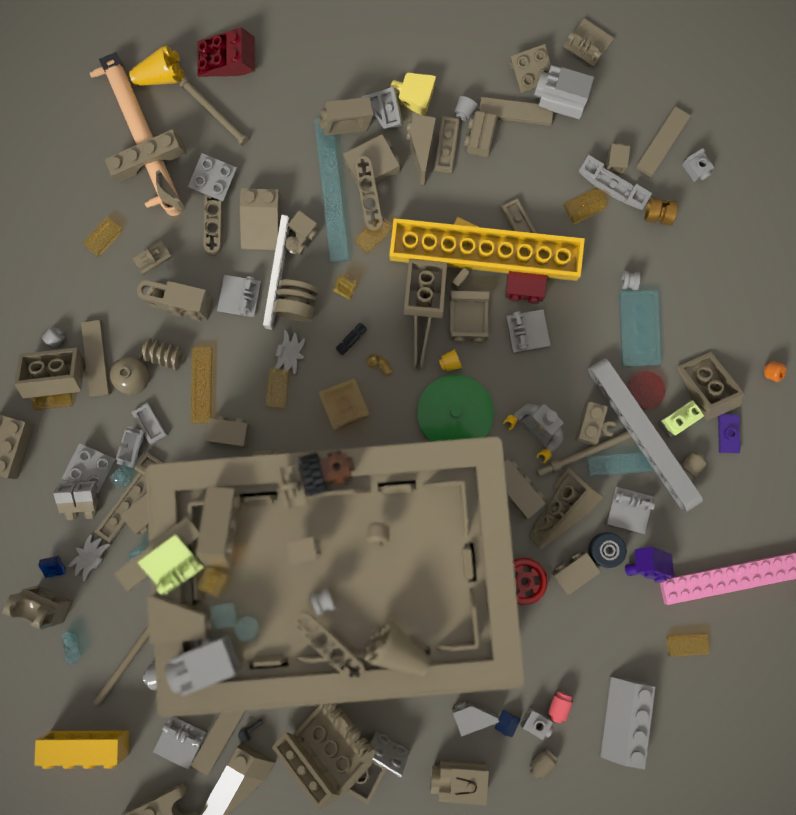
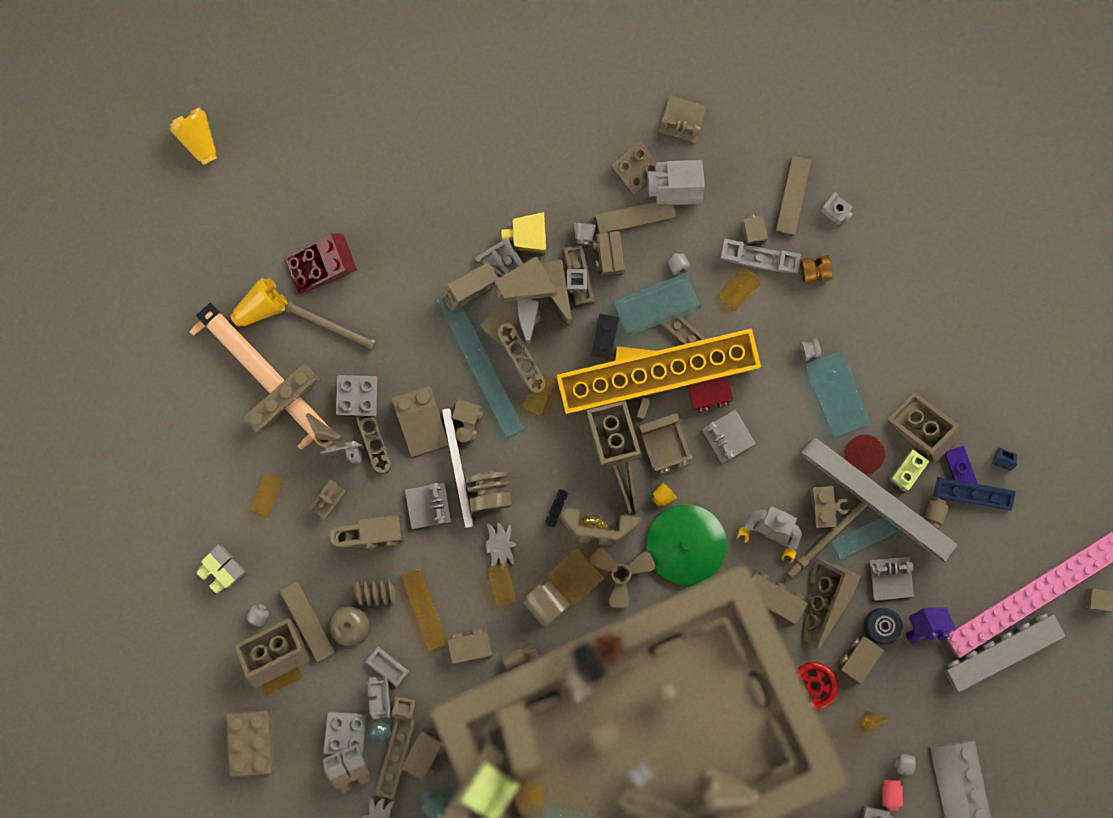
camera: 25 degrees left, 0 degrees up
(39, 284) = (223, 567): none -> hips
(187, 220) = (351, 449): none -> light grey hinge
(309, 417) = (546, 602): none -> dark tan piece
(345, 286) = (531, 458): clear yellow tile -> none
(378, 435) = (619, 596): none -> dark tan piece
(390, 150) = (527, 315): none -> light grey slope
(394, 124) = (525, 282): none -> dark tan slope
(405, 373) = (605, 537): none -> dark tan slope
(442, 144) = (576, 280): none -> light grey brick
(450, 203) = (605, 336): none -> black brick
(506, 192) = (656, 304): none -> clear light blue tile
(539, 165) = (678, 264): none -> light grey piece
(565, 633) = (871, 721): none -> clear yellow slope
(582, 684) = (905, 764): none -> light grey piece
(687, 645) = (992, 689): clear yellow tile -> none
(710, 615) = (1004, 652): none -> light grey brick
(734, 461) = (974, 493): none -> dark blue tile
(772, 441) = (1005, 459): none -> dark blue slope
(775, 371) = (983, 390): orange piece -> none

